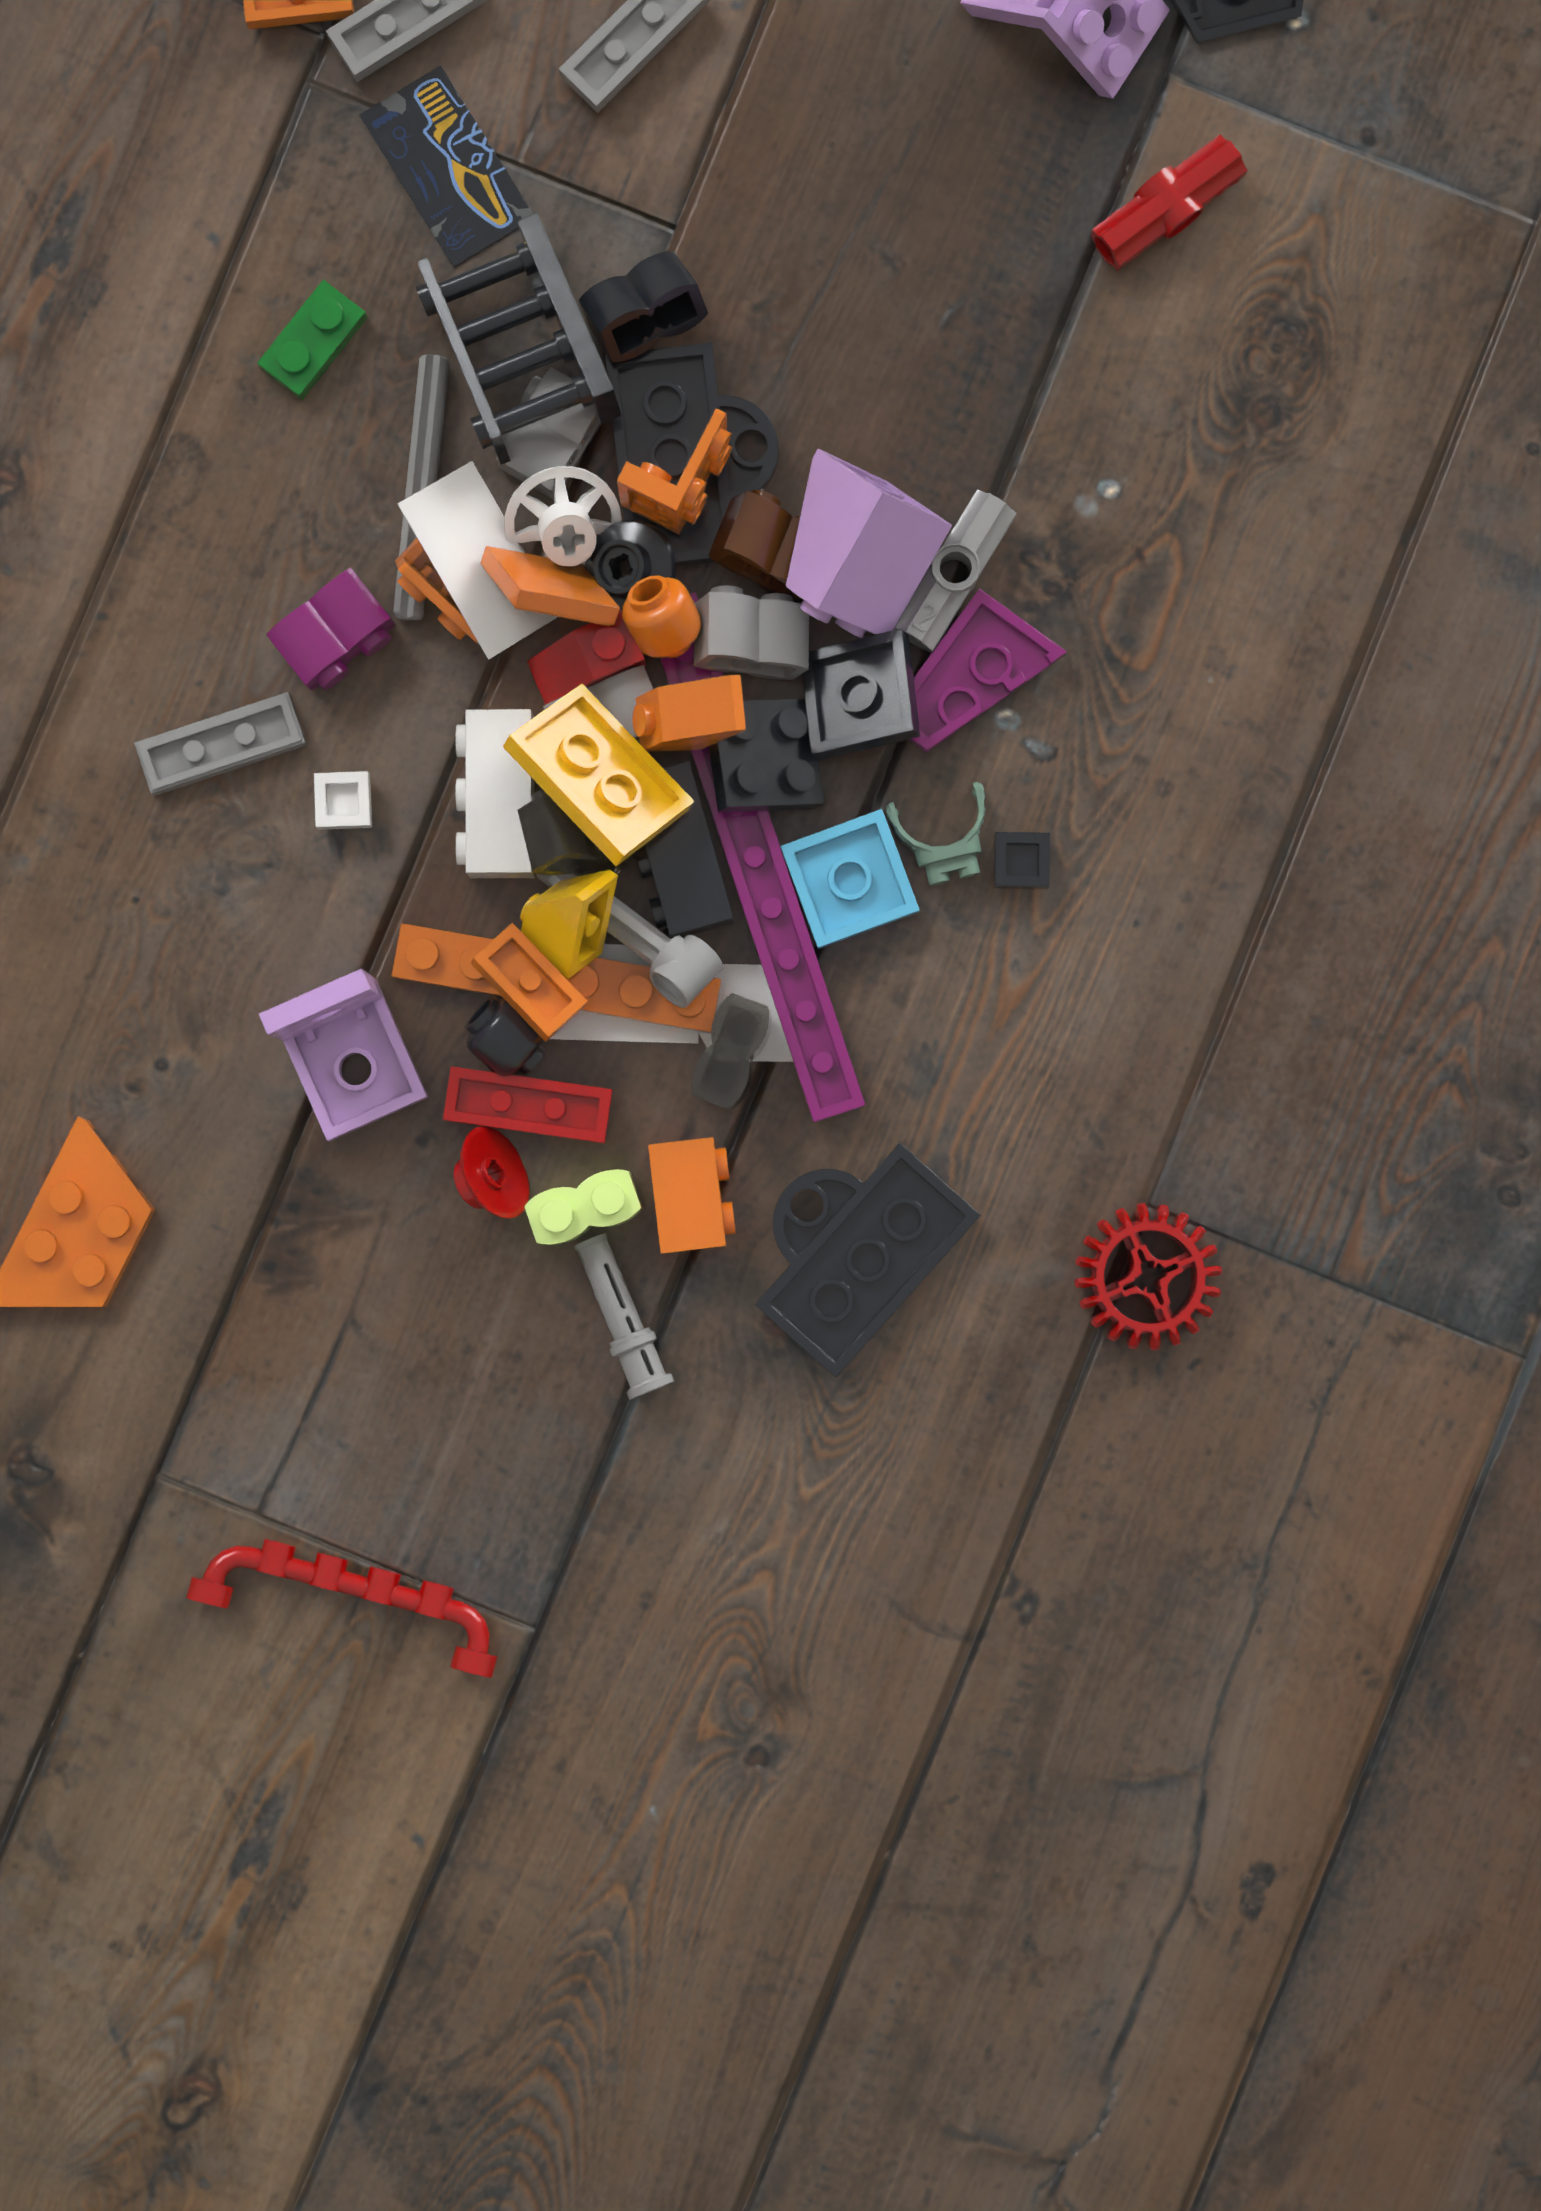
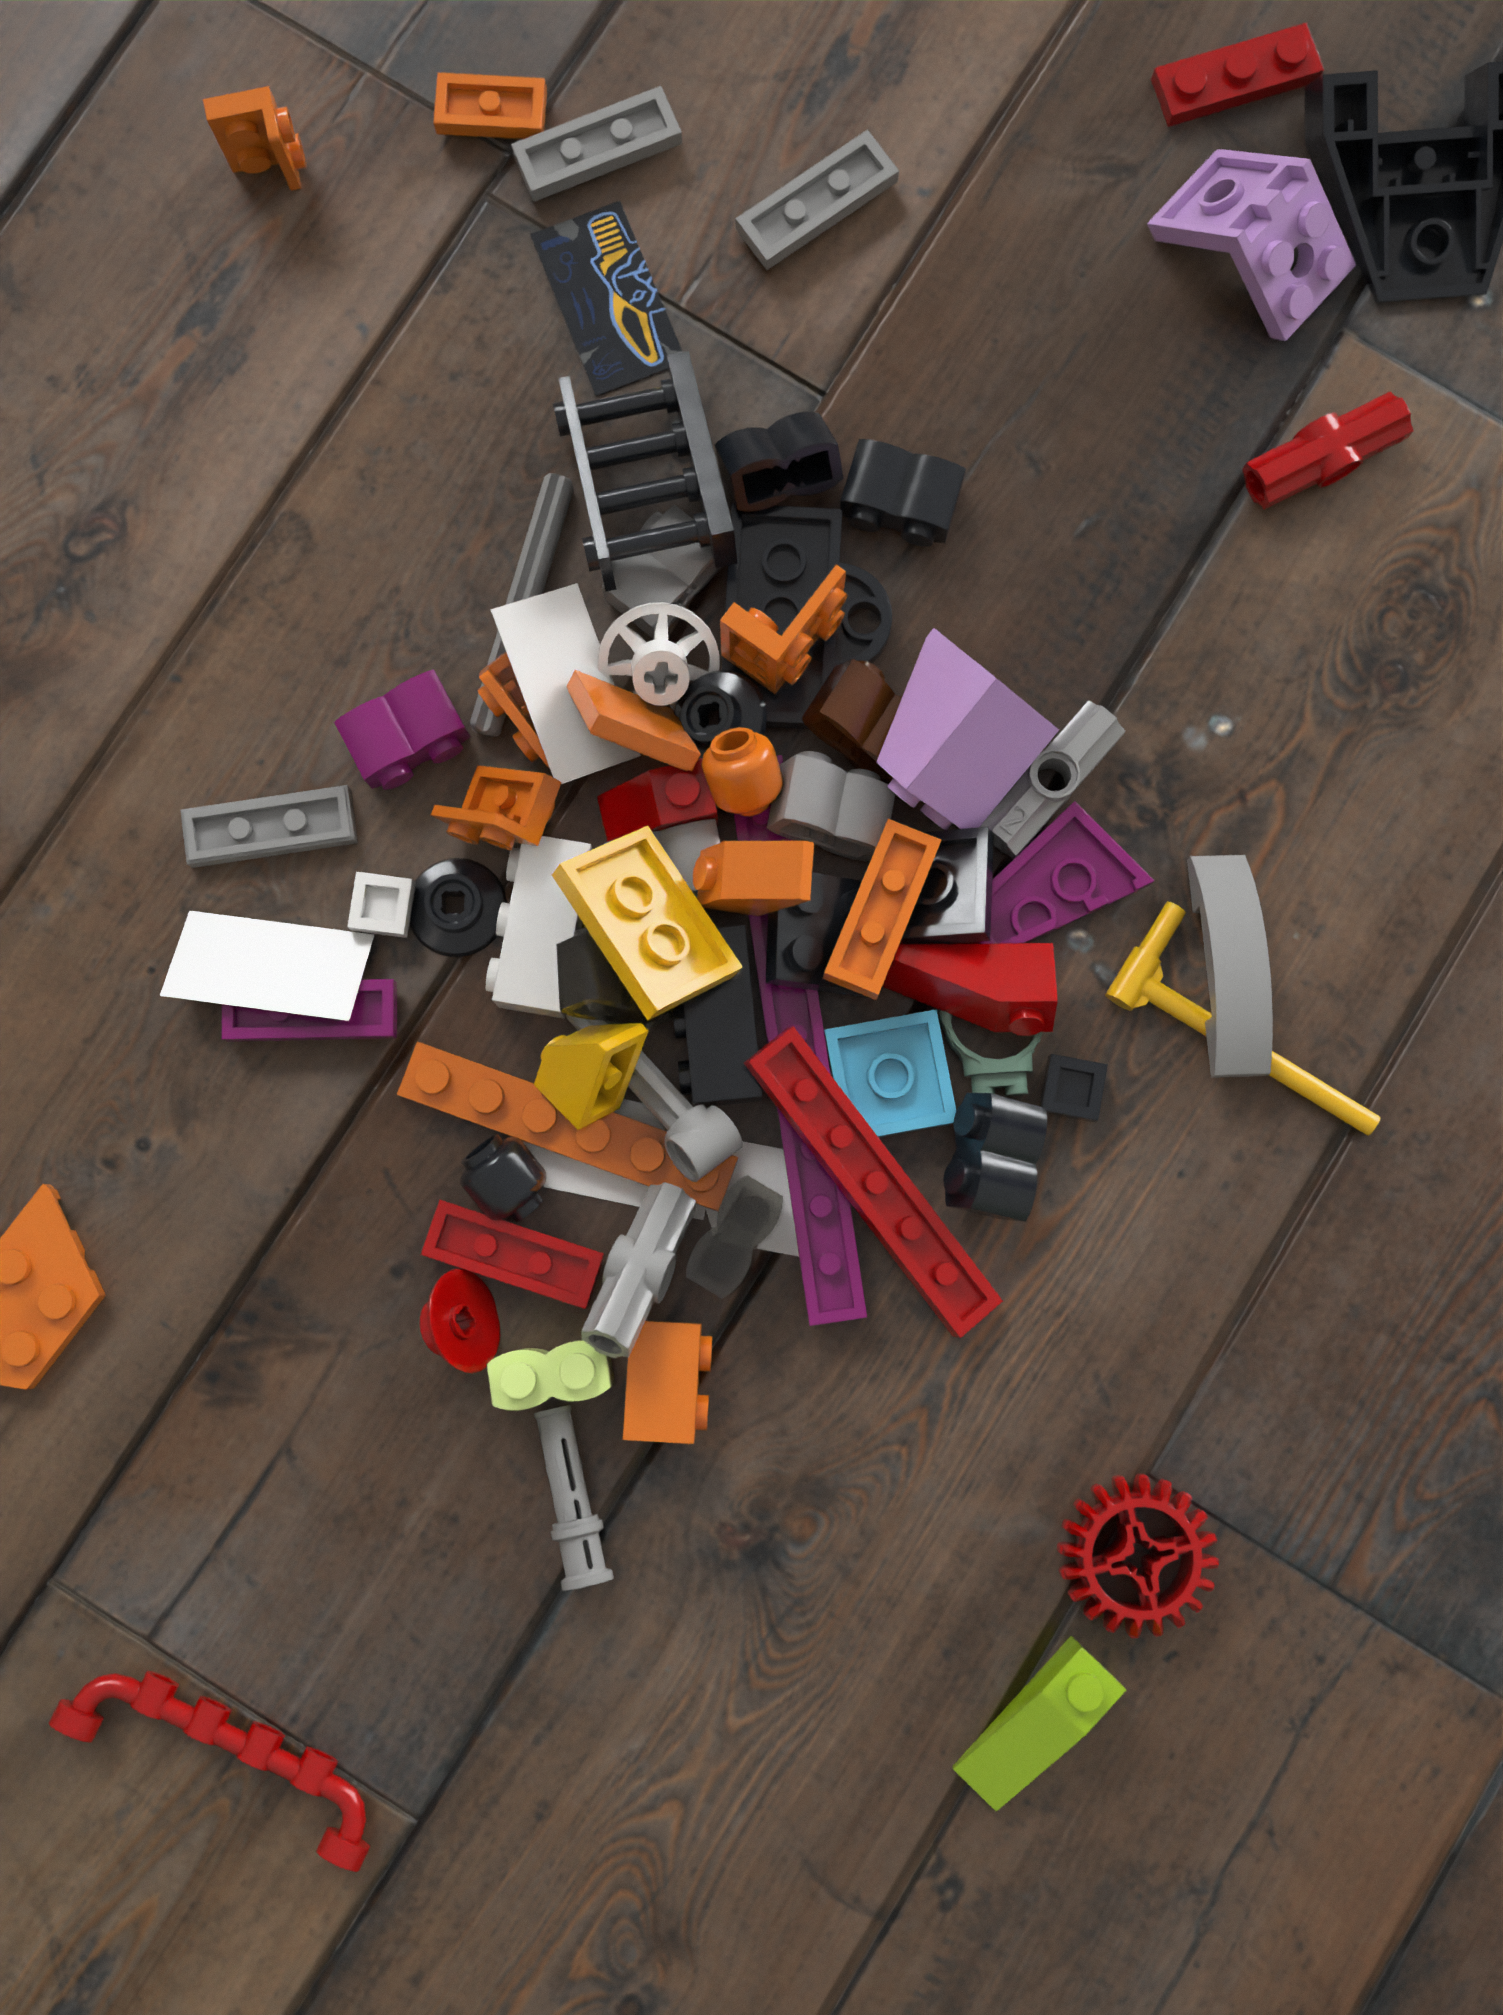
camera: 10 degrees right, 5 degrees down
(76, 64) = (256, 133): none -> orange bracket
(247, 876) = (268, 965): none -> white sticker
(294, 911) = (371, 1018): none -> magenta plate
(312, 340) = (441, 441): green plate -> none
(329, 1027) = (319, 1136): lavender bracket -> none
(415, 815) = (455, 933): none -> black piece
(441, 689) = (502, 808): none -> orange bracket
(529, 982) = (536, 1126): orange plate -> none
(648, 1097) = (639, 1270): none -> light grey piece
(766, 315) = (901, 492): none -> black brick
(814, 724) = (881, 909): none -> orange plate
(849, 979) = (873, 1182): none -> red plate
(860, 1252) = (834, 1475): black plate -> none
(920, 777) = (986, 984): none -> red slope
(958, 936) = (995, 1156): none -> black brick
(1070, 749) = (1140, 982): none -> yellow bar
(1082, 1443) = (1039, 1724): none -> lime slope
(1153, 718) = (1236, 965): none -> light grey slope

